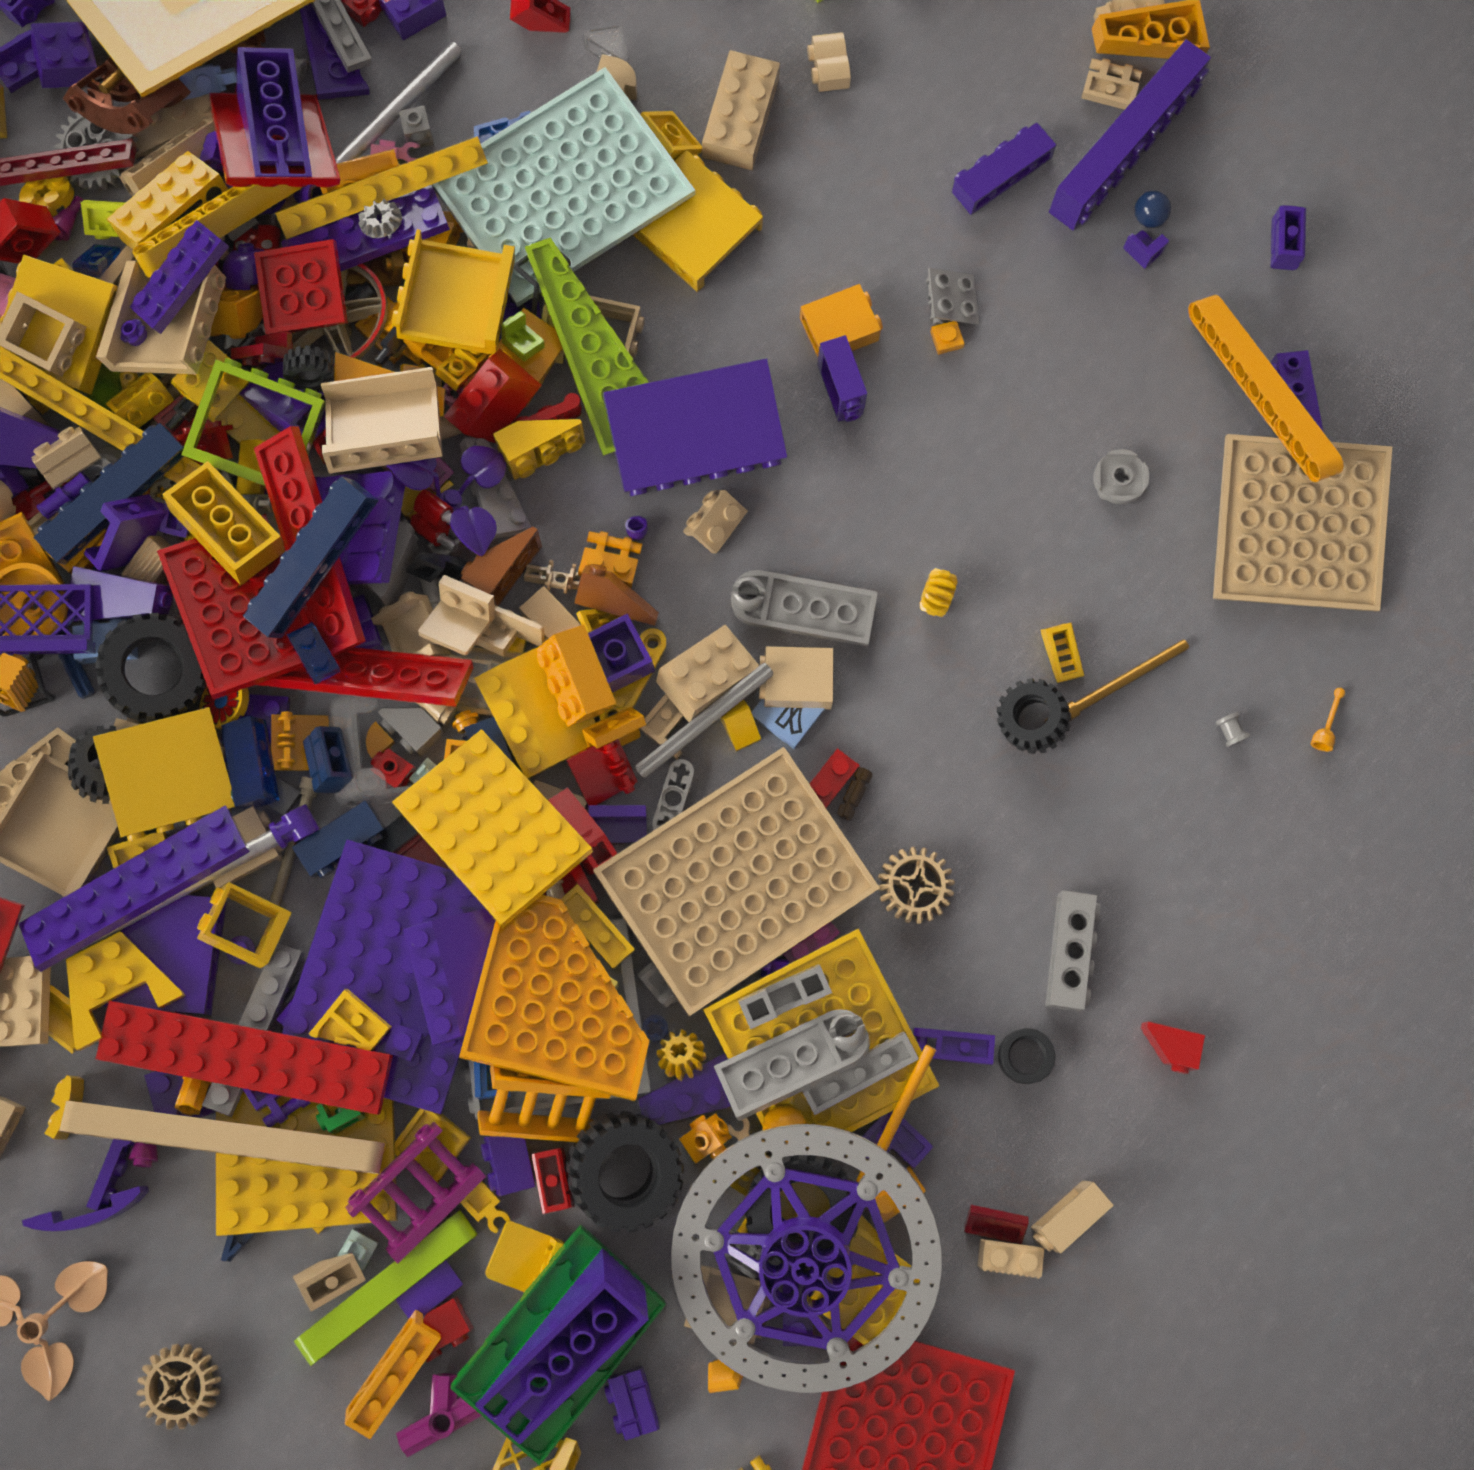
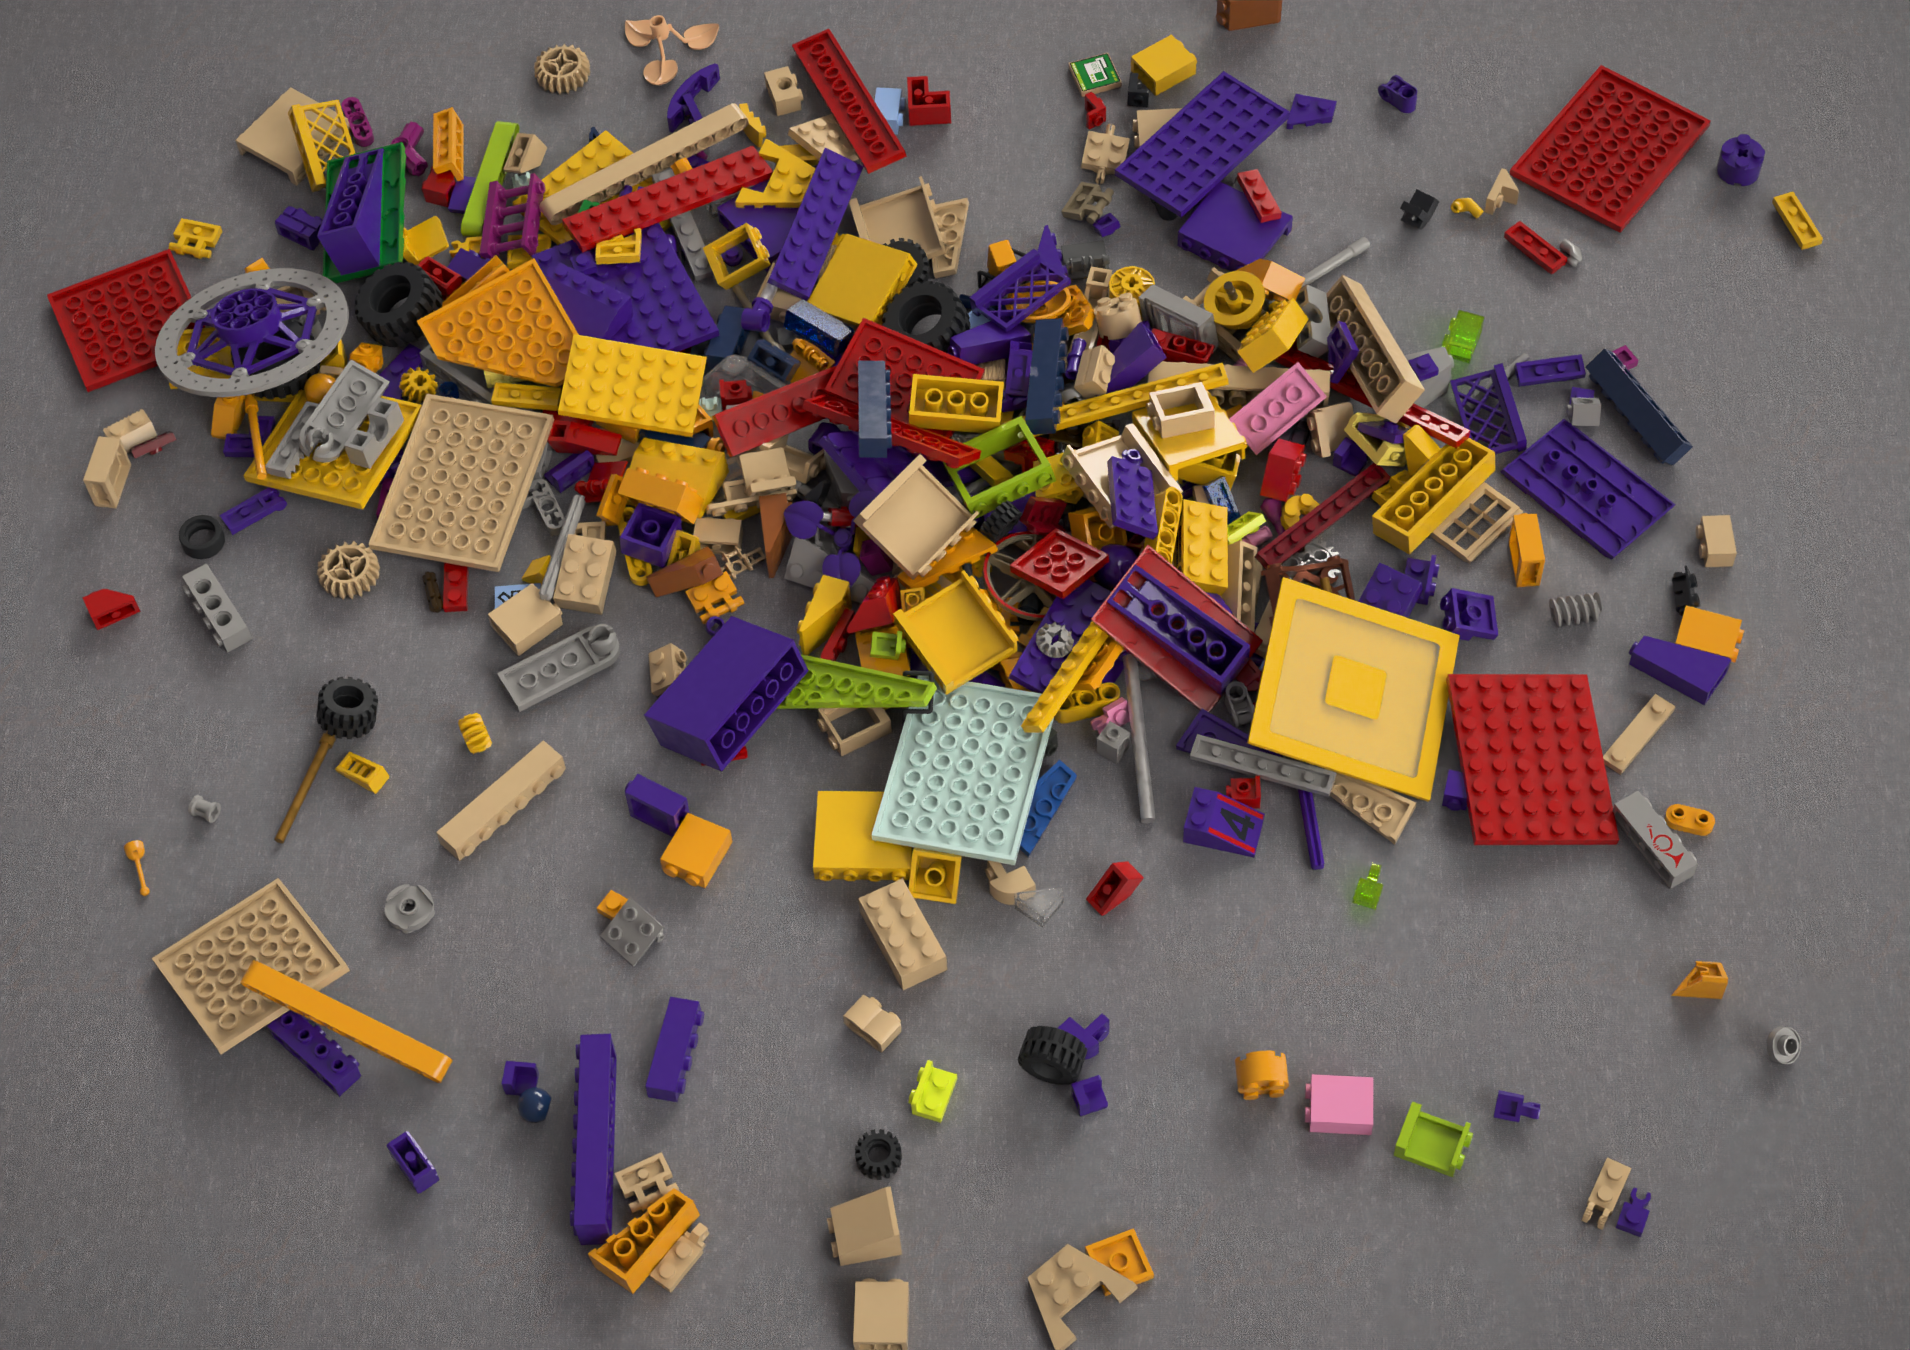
camera: 145 degrees right, 20 degrees down
(313, 653) = (828, 383): clear blue plate -> none
(964, 510) = (501, 800): none -> tan brick

